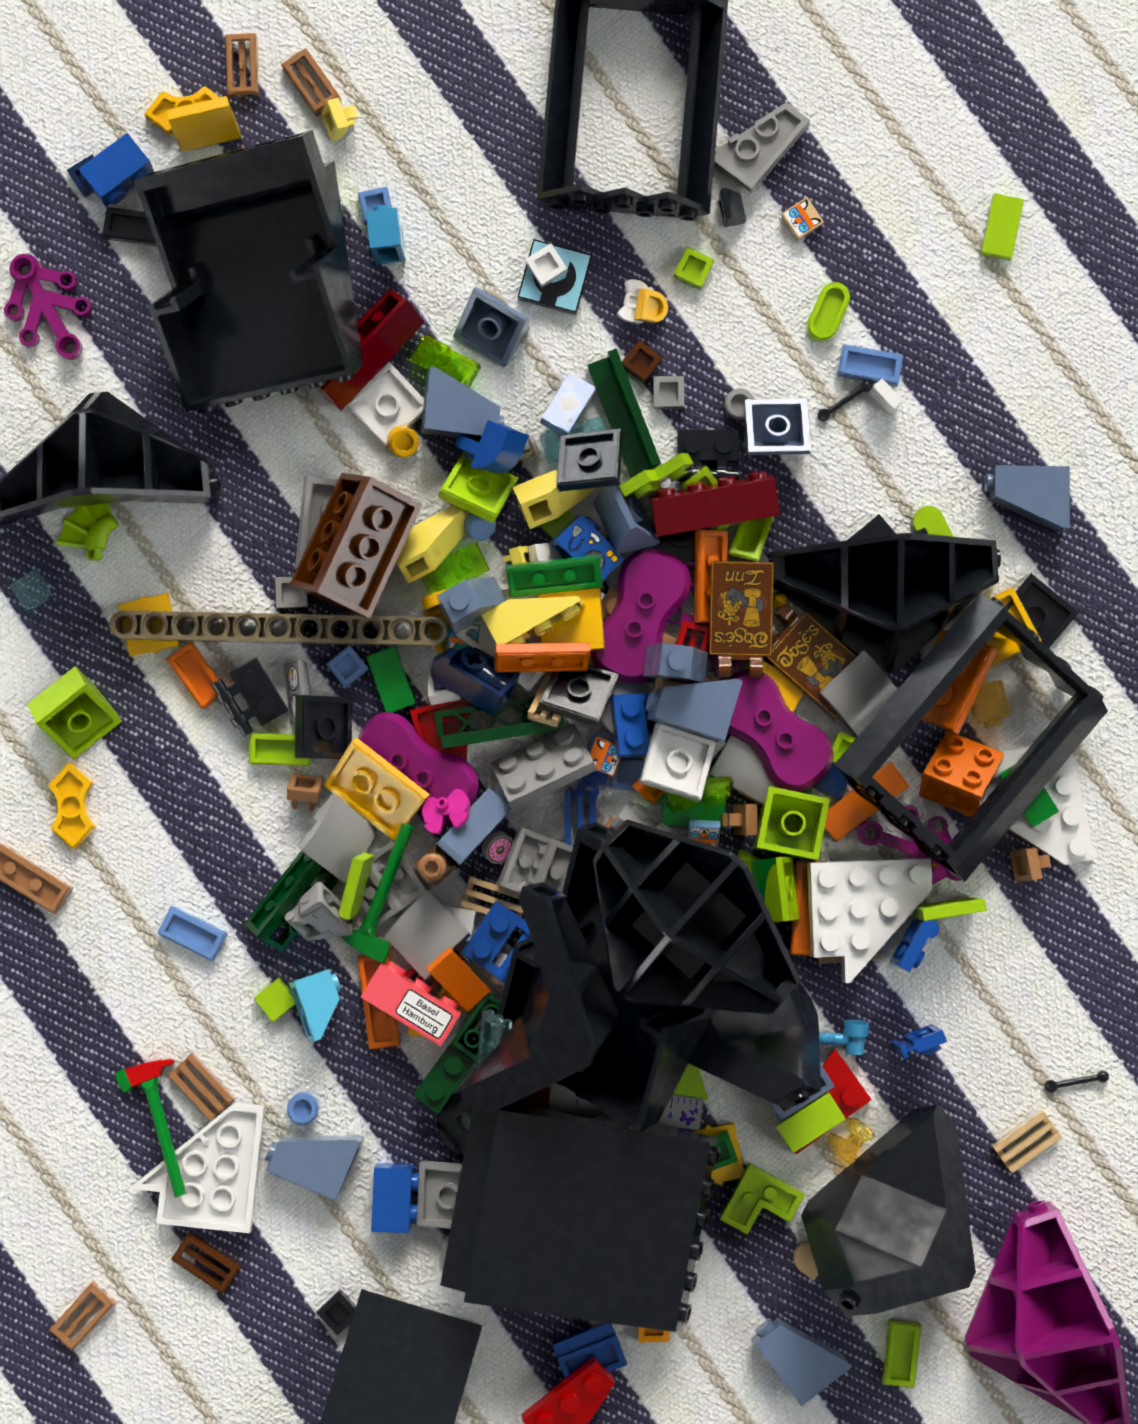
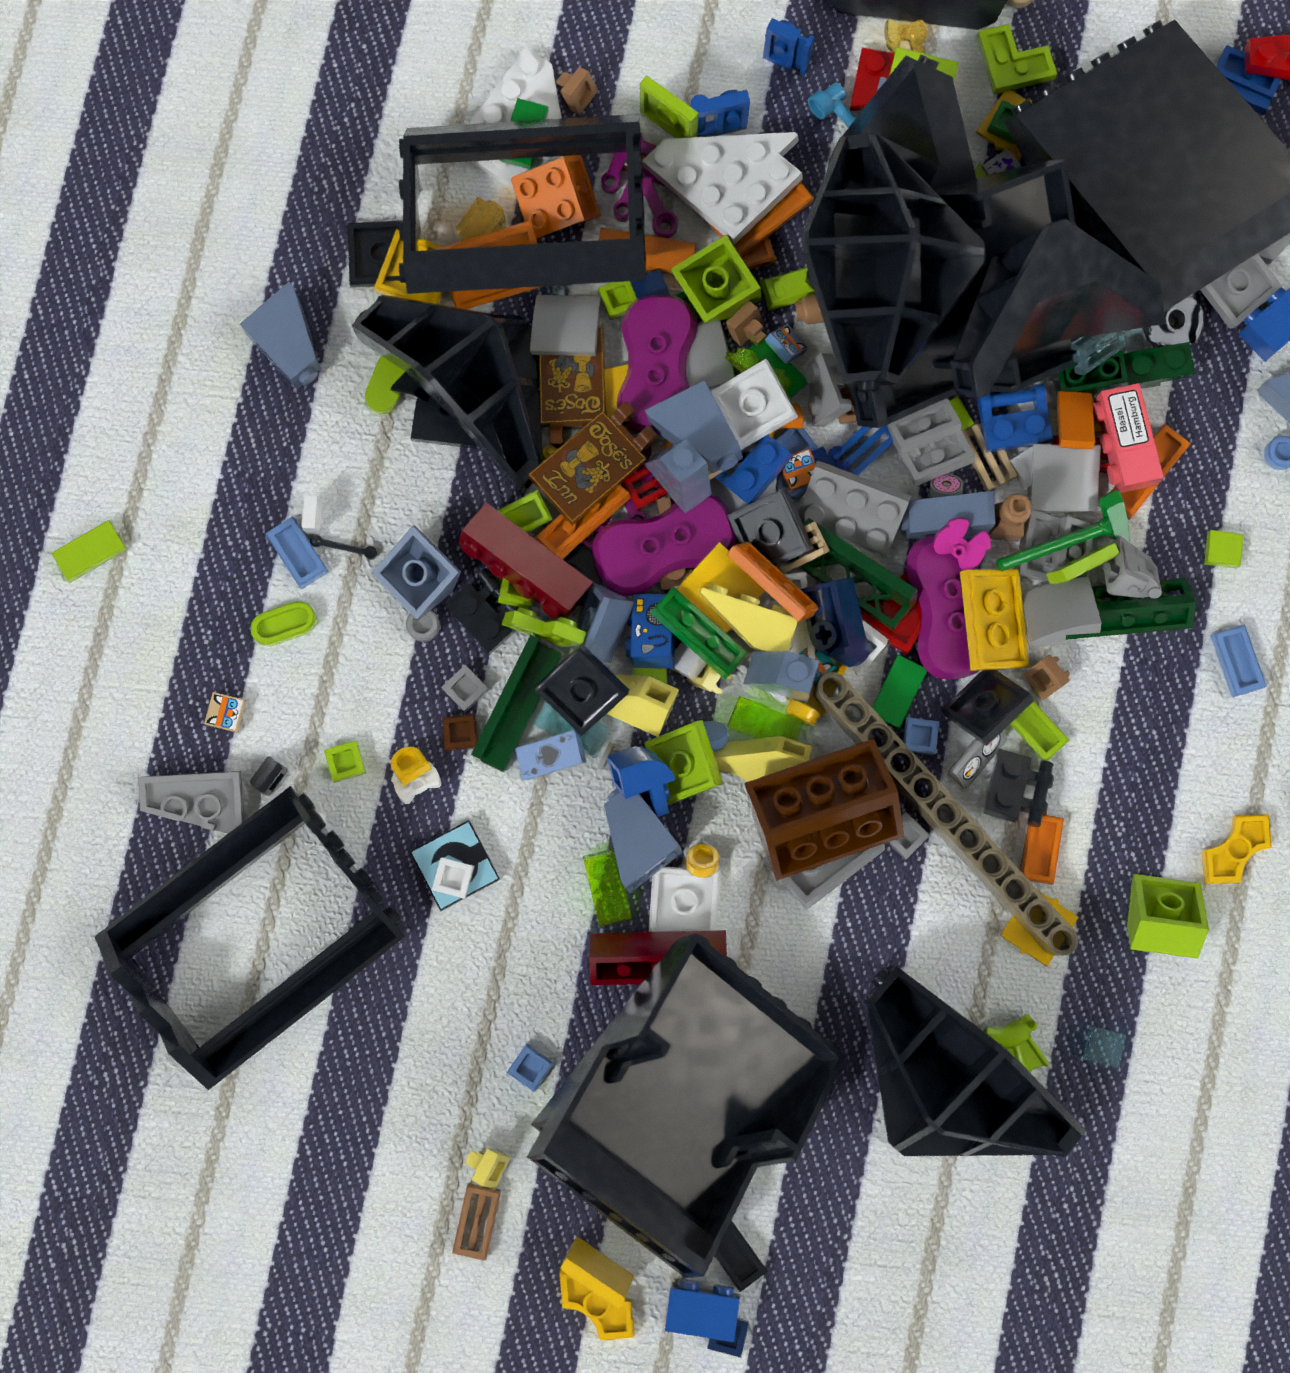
camera: 135 degrees left, 5 degrees down
(44, 302) = (866, 1267): magenta plant -> none
(243, 90) = (535, 1273): medium nougat tile -> none
(316, 1001) = (1196, 514): medium azure slope -> none
(385, 235) = (549, 1030): dark azure brick -> none
(491, 327) = (545, 875): sand blue slope -> none
(777, 886) = (778, 248): lime slope -> none

